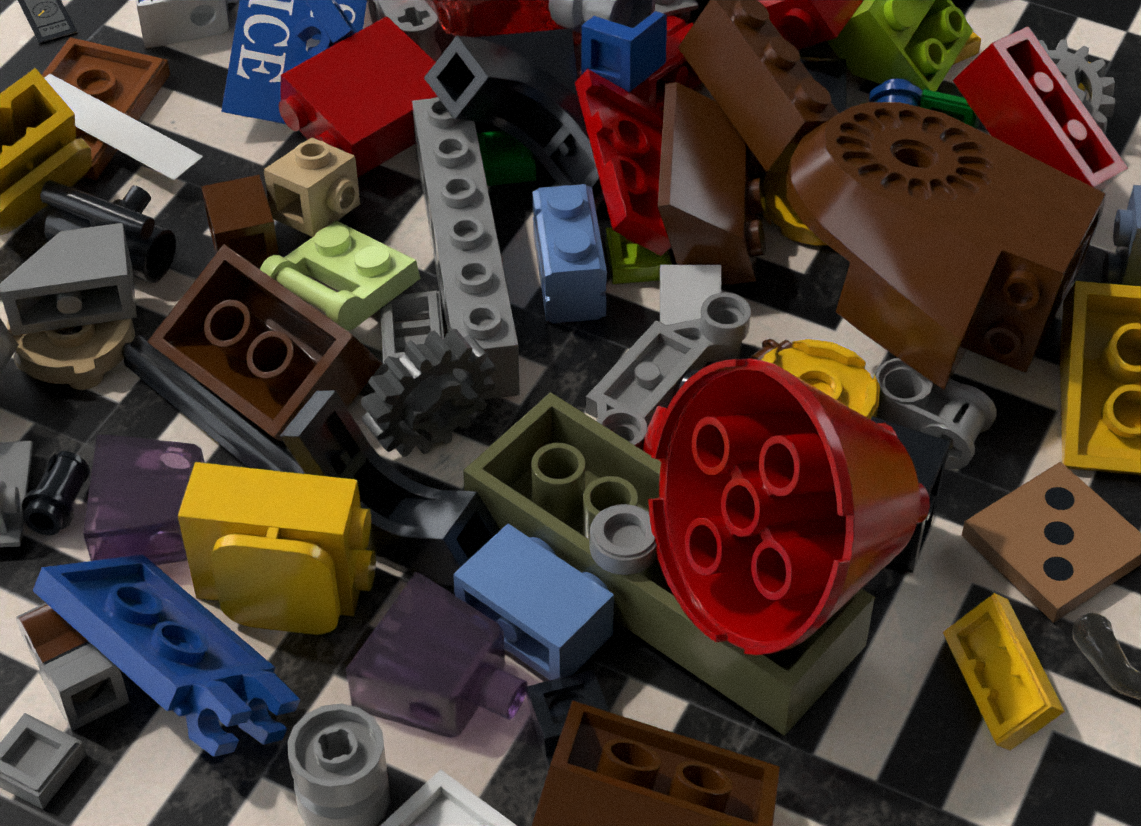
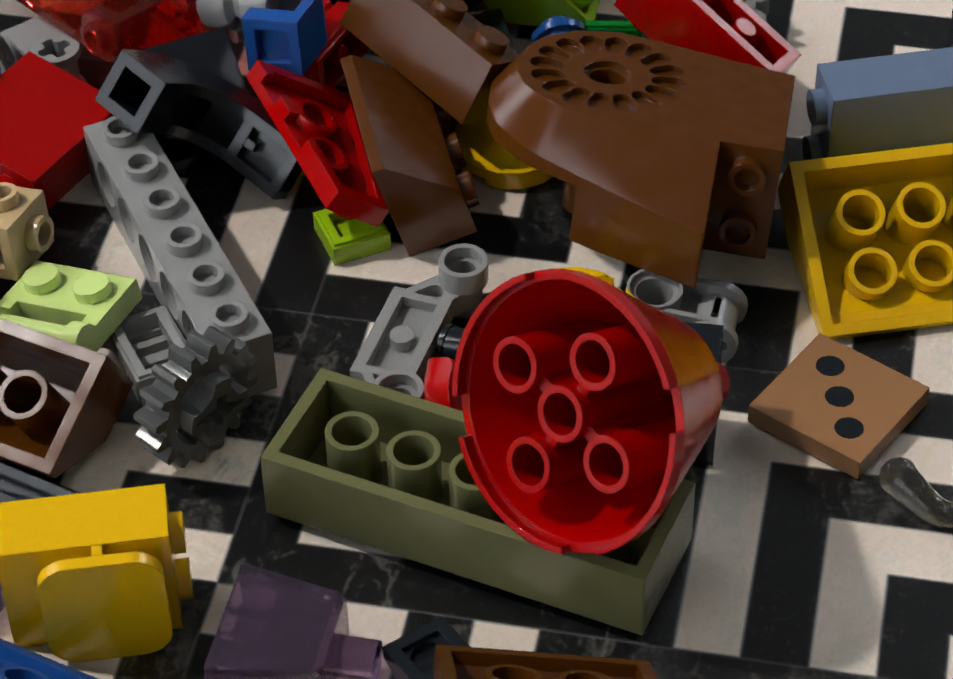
camera: 15 degrees left, 5 degrees down
(410, 523) = (224, 523): black arch -> none
(505, 159) = (195, 166): green tile -> none
(543, 604) = (380, 566): medium blue brick -> none
(569, 253) = (287, 242): medium blue brick -> none
(622, 540) = (441, 483): light grey tile -> none
(685, 289) = (414, 252): white tile -> none
(1003, 672) = (828, 529): yellow plate -> none

